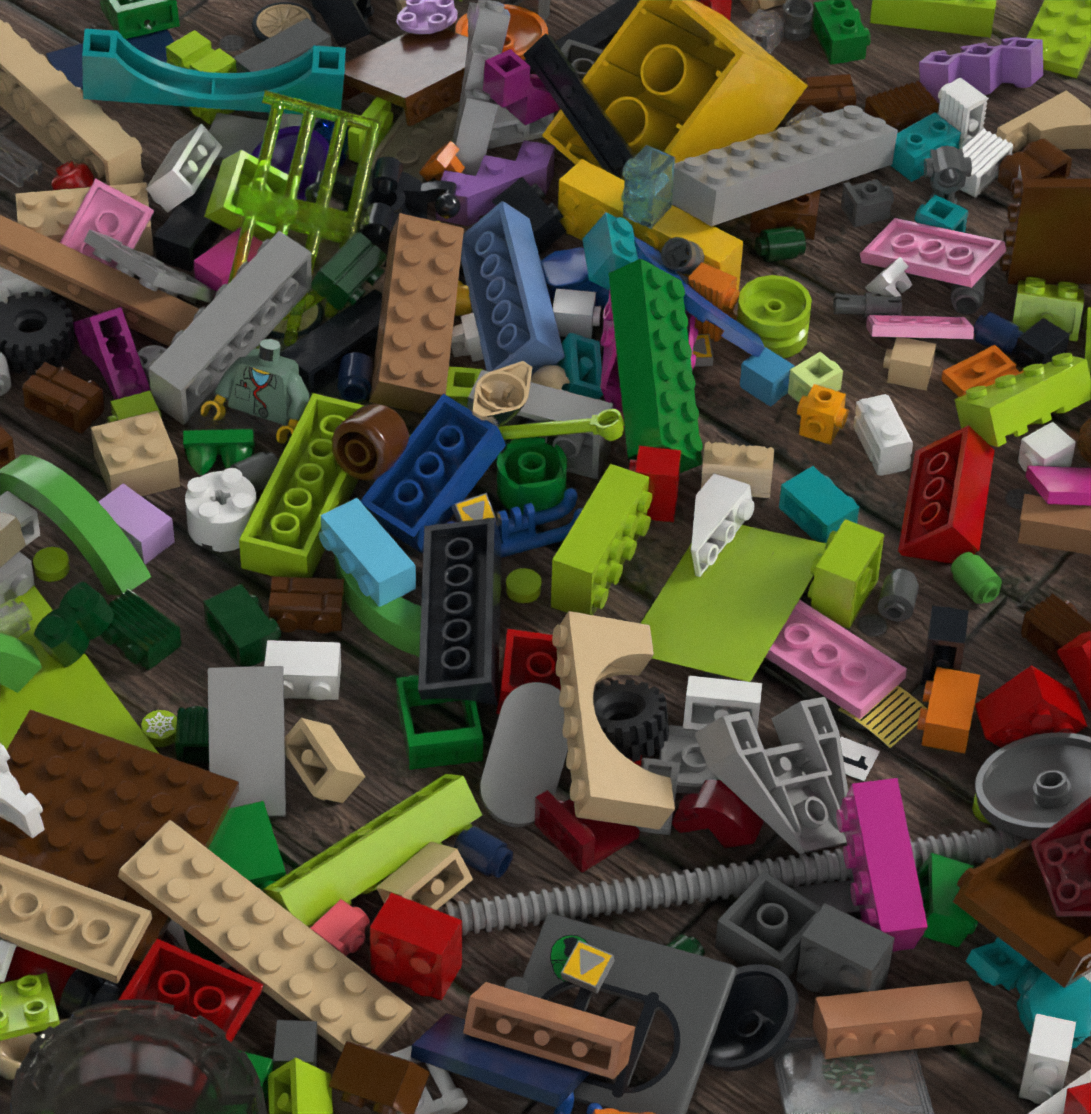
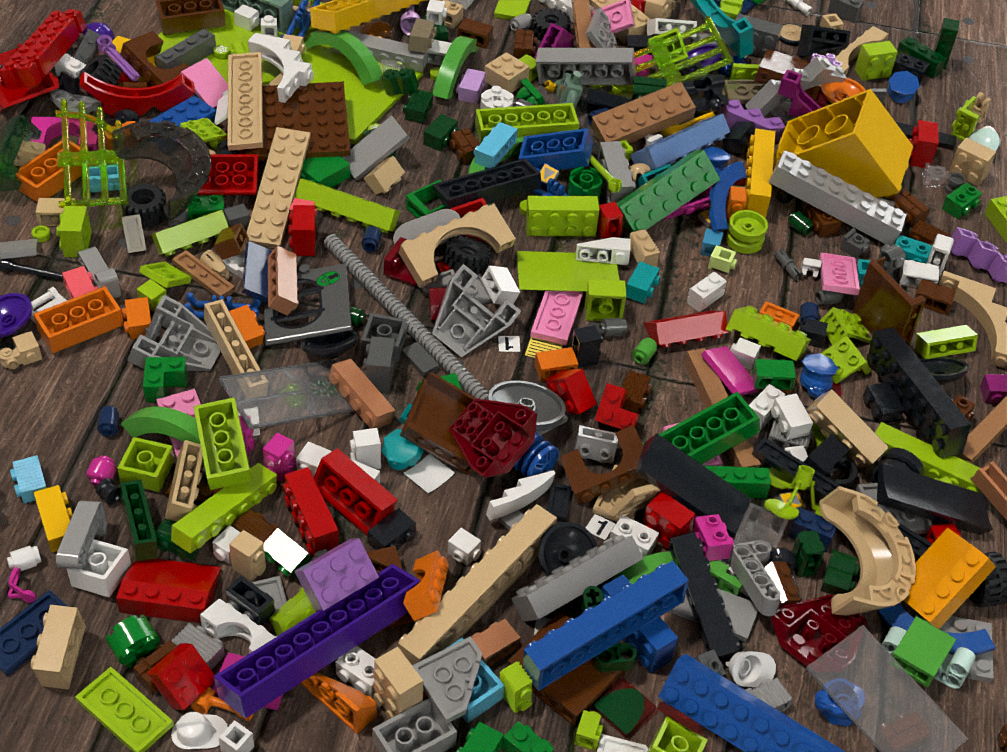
camera: 60 degrees right, 0 degrees up
(310, 668) = (430, 156): white brick -> none
(369, 441) = (550, 120): reddish brown head -> none
(428, 876) = (340, 224): tan brick -> none
(442, 160) = (743, 97): orange tile -> none
(502, 393) = (599, 144): tan hat -> none
(579, 105) = (801, 120): black tile -> none
(587, 966) = (324, 283): tile -> none
(608, 247) = (727, 156): teal brick -> none
(648, 186) = (763, 148): clear light blue brick -> none
(675, 253) = (740, 177): dark grey wheel -> none
(822, 414) = (701, 266): light orange brick -> none
(882, 861) = (433, 353): dark pink brick -> none
(910, 363) = (762, 289): tan brick -> none
(919, 326) = (784, 282): bright pink tile -> none

